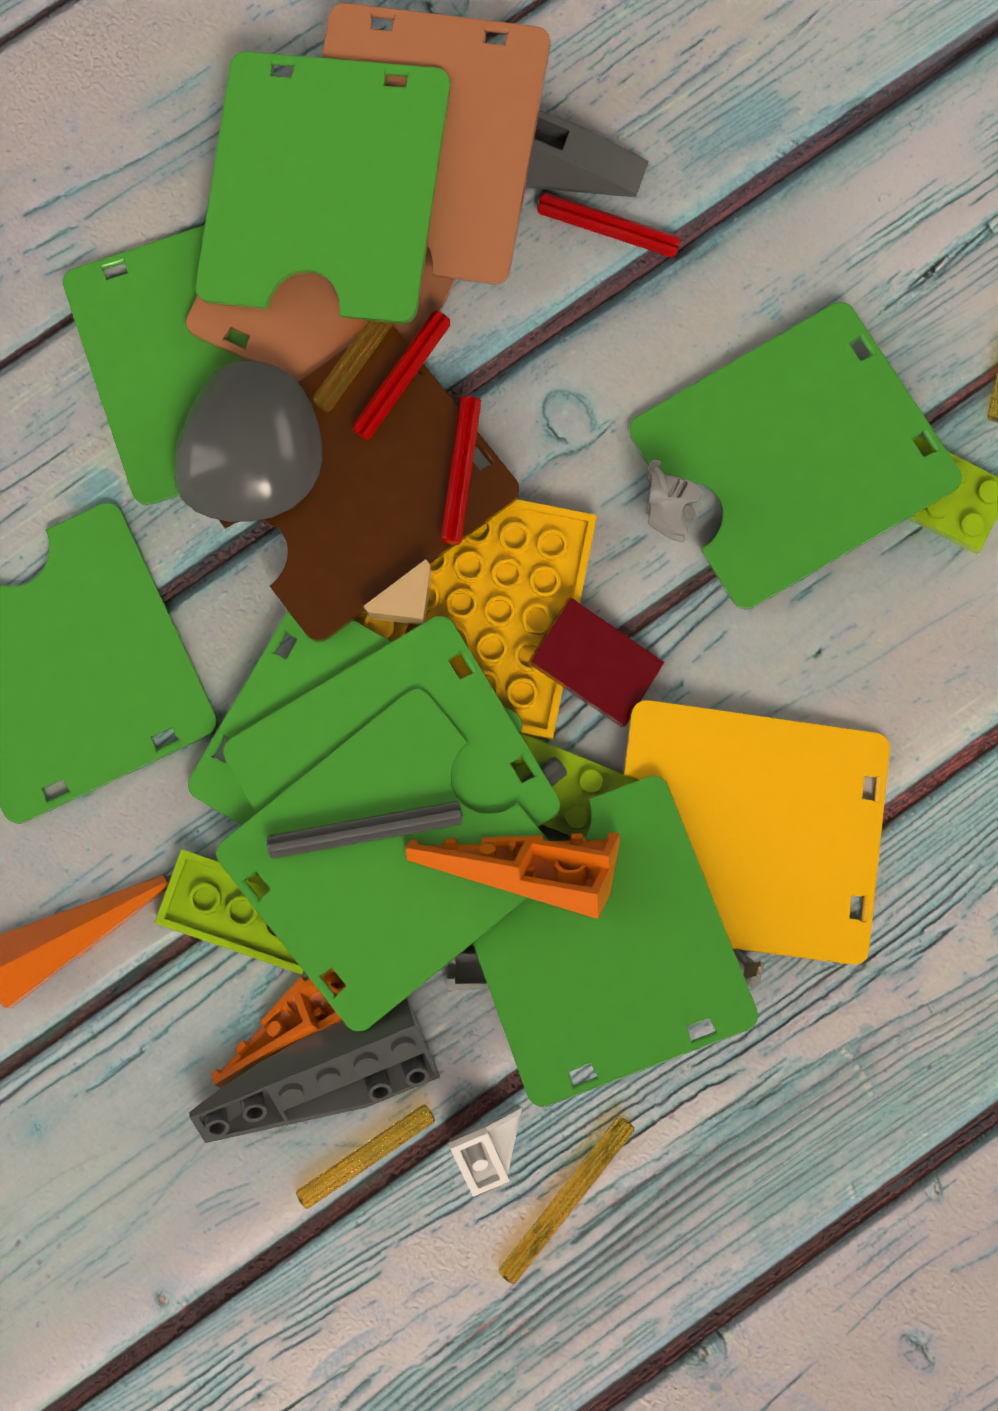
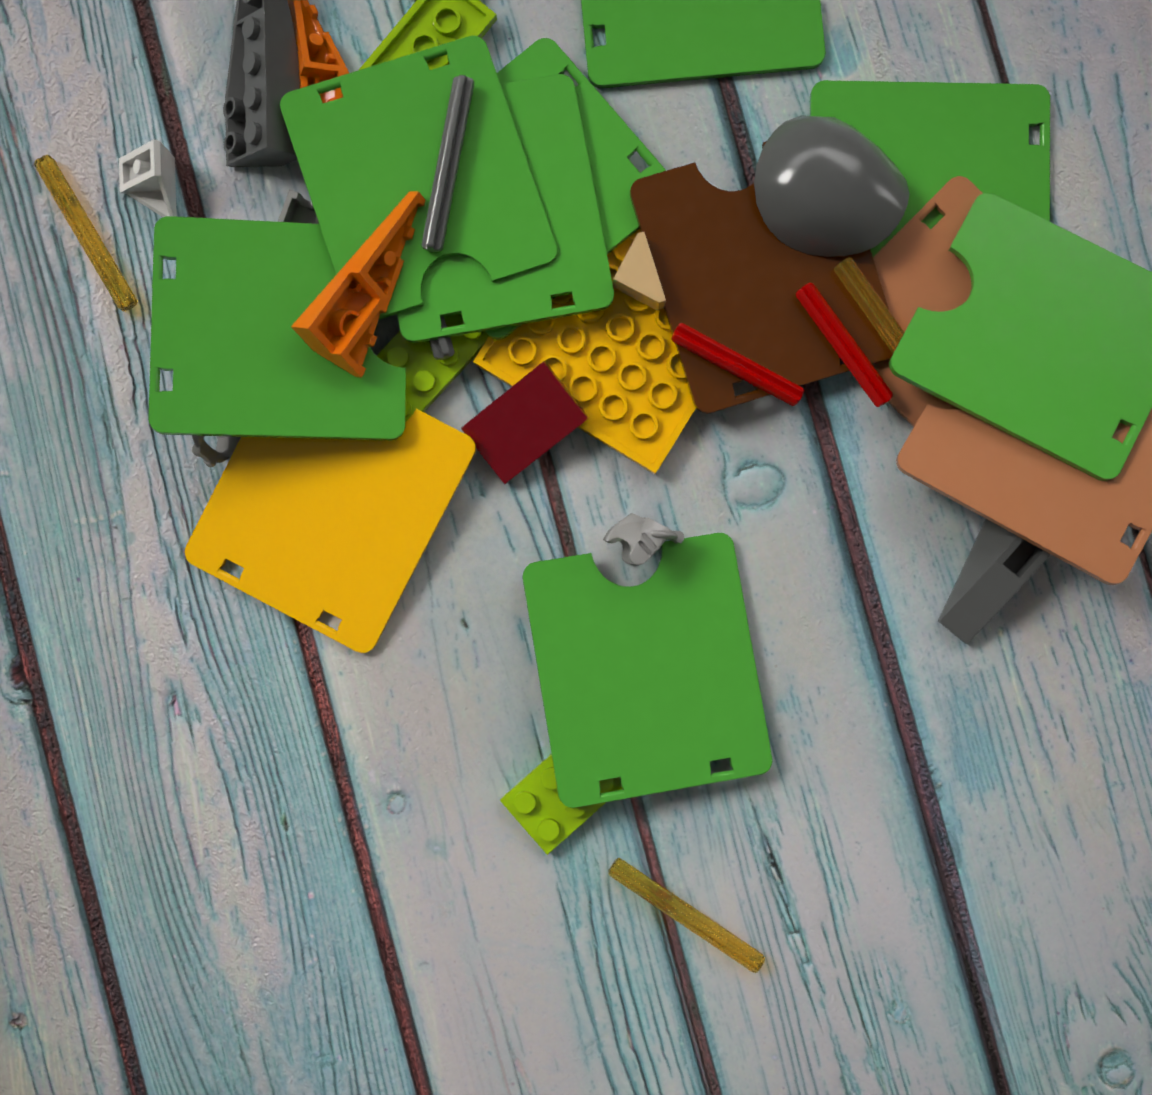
camera: 110 degrees right, 5 degrees up
(365, 1156) = (184, 81): clear yellow axle -> none
(608, 225) = (920, 586): red axle -> none

